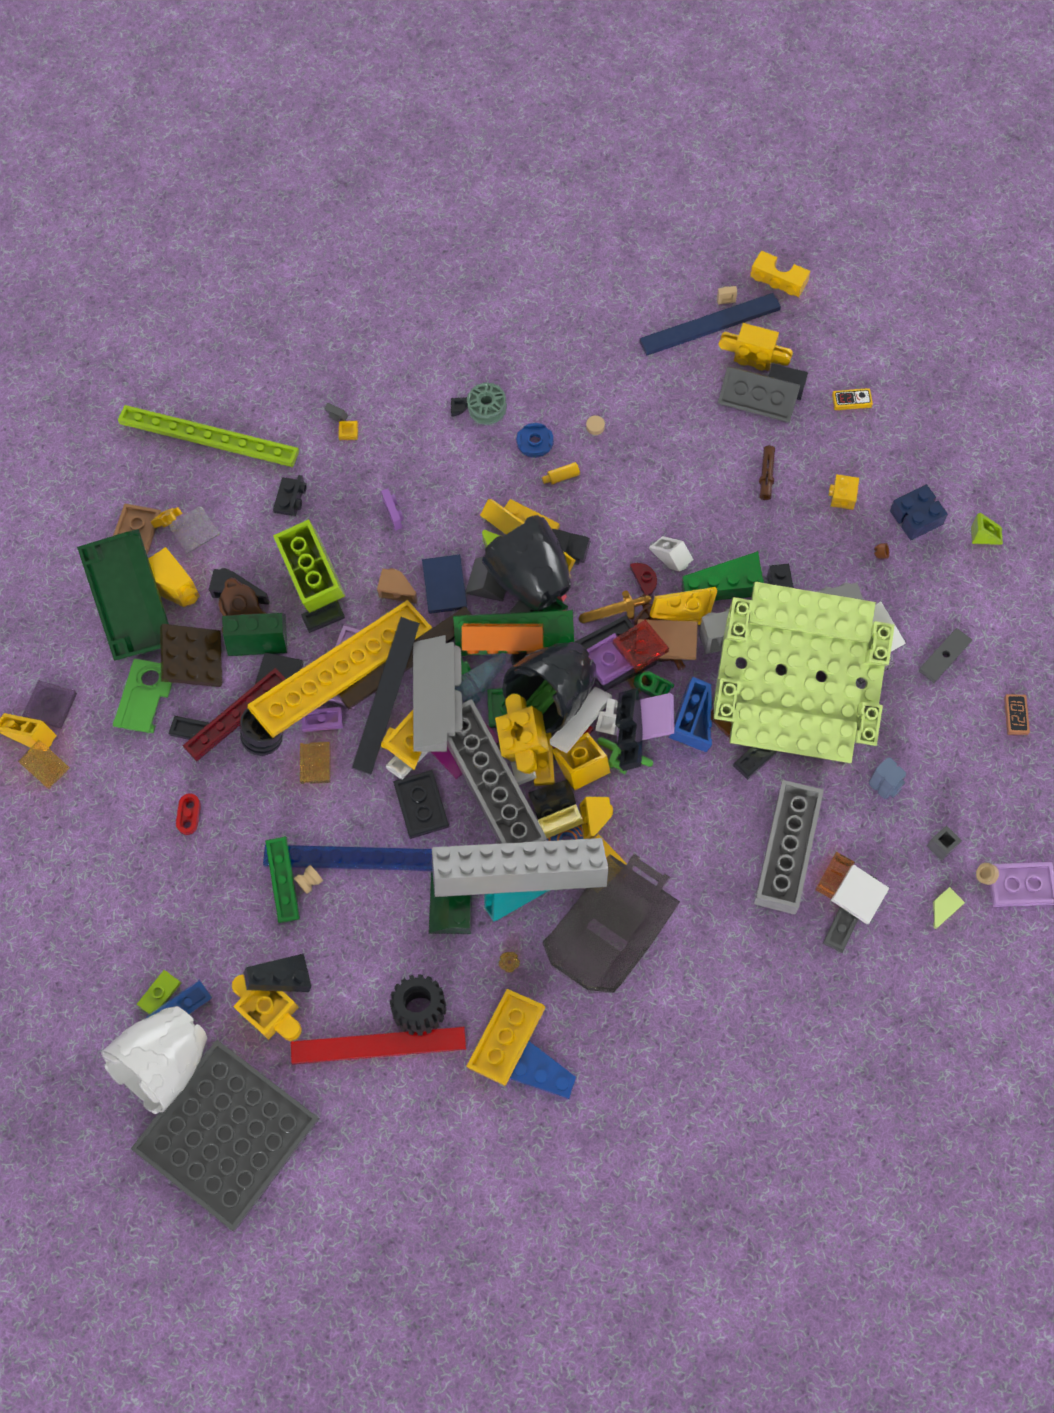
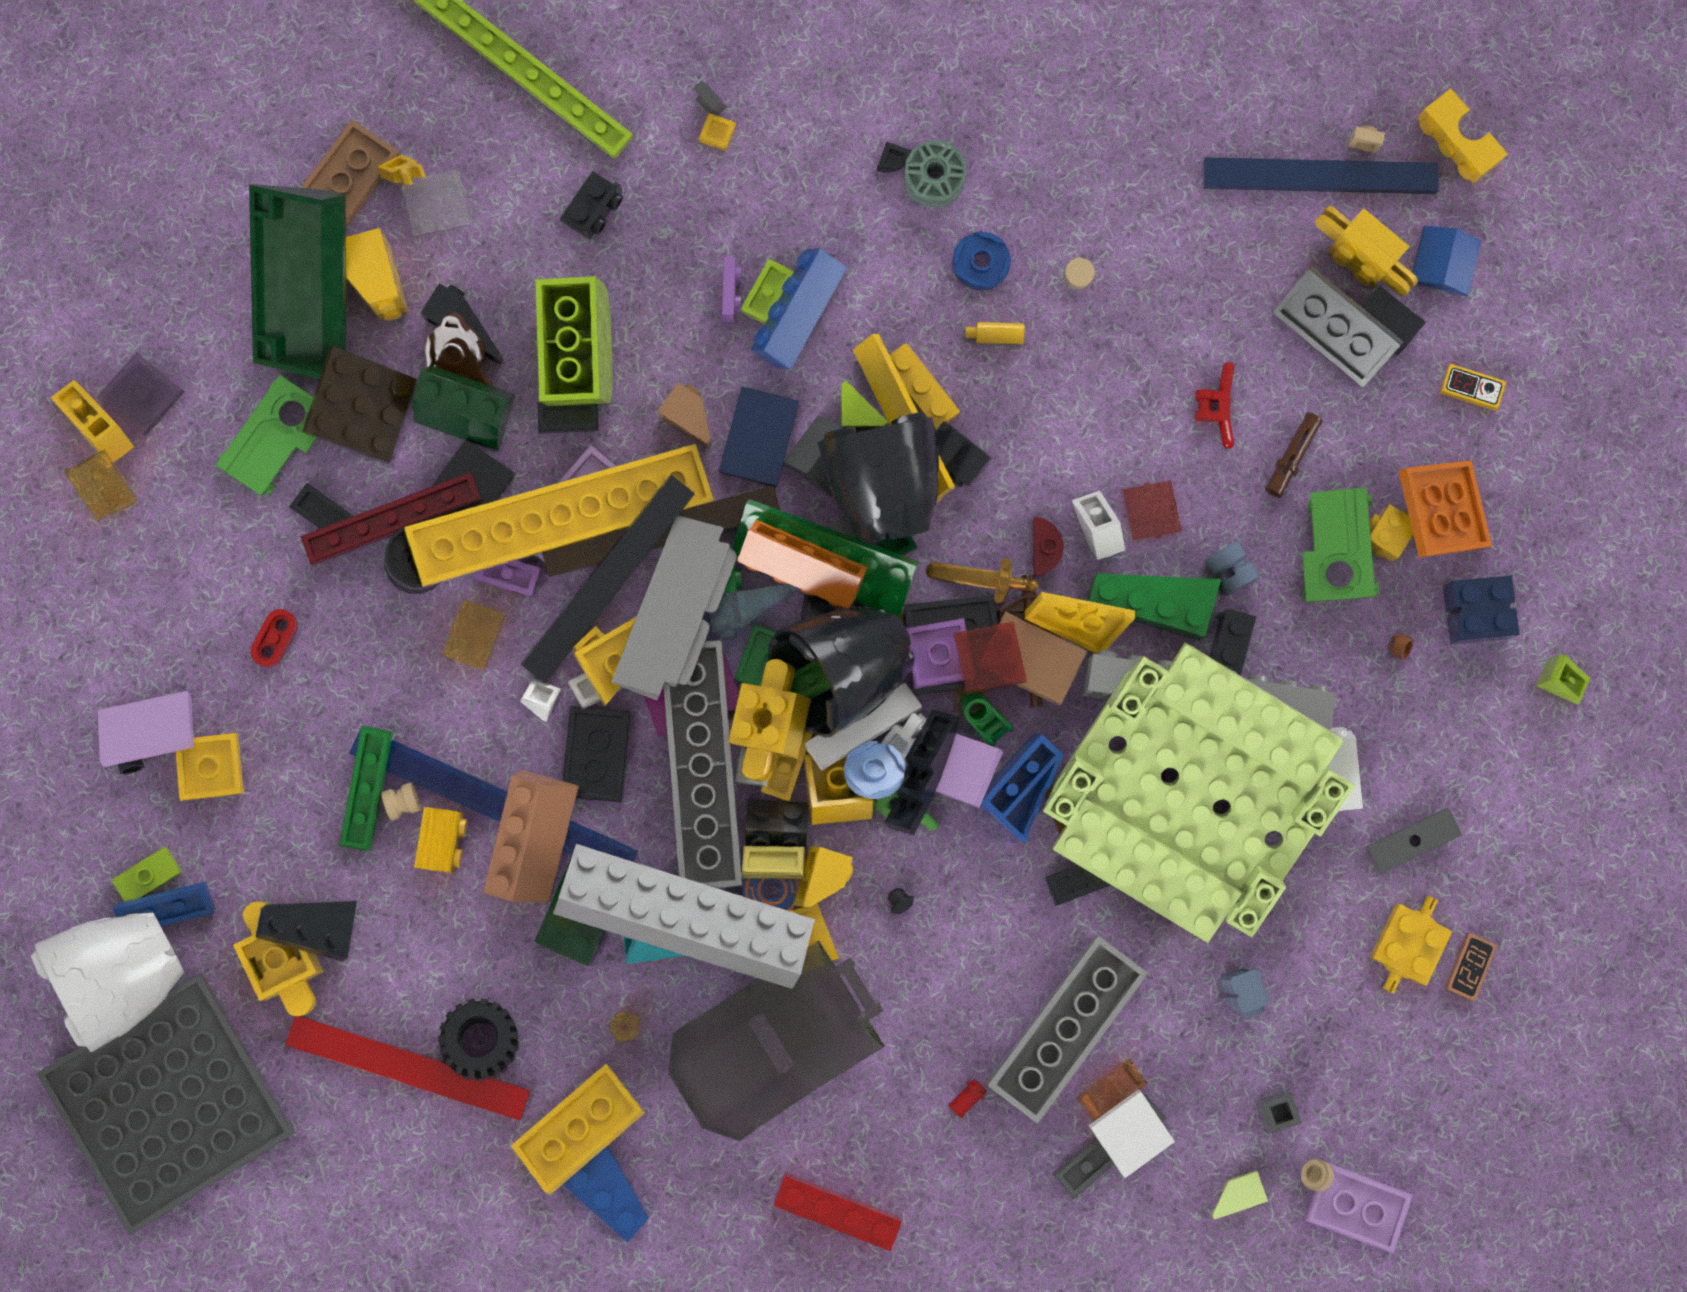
camera: 10 degrees right, 15 degrees up
(118, 926) = (130, 767): none -> black hinge
(125, 900) = (145, 728): none -> lavender tile
(175, 908) = (210, 768): none -> yellow plate
(342, 893) = (440, 840): none -> yellow brick
(372, 784) = (540, 698): none -> white slope
(401, 865) = (530, 838): none -> nougat slope
(415, 502) = (766, 291): none -> lime plate
(437, 503) = (798, 308): none -> brick
(599, 739) = (874, 770): none -> light blue tile
(650, 814) = (900, 901): none -> black piece
(697, 1019) = (837, 1211): none -> red brick
(698, 535) = (1152, 510): none -> clear red piece
(709, 458) = (1223, 398): none -> red piece
(747, 916) = (968, 1098): none -> red pin
(757, 540) = (1224, 560): none -> sand blue wheel
(803, 339) = (1446, 259): none -> blue slope
(815, 502) = (1339, 535): none -> bright green piece
(869, 465) = (1445, 508): none -> orange plate
(974, 716) = (1410, 944): none -> yellow plate

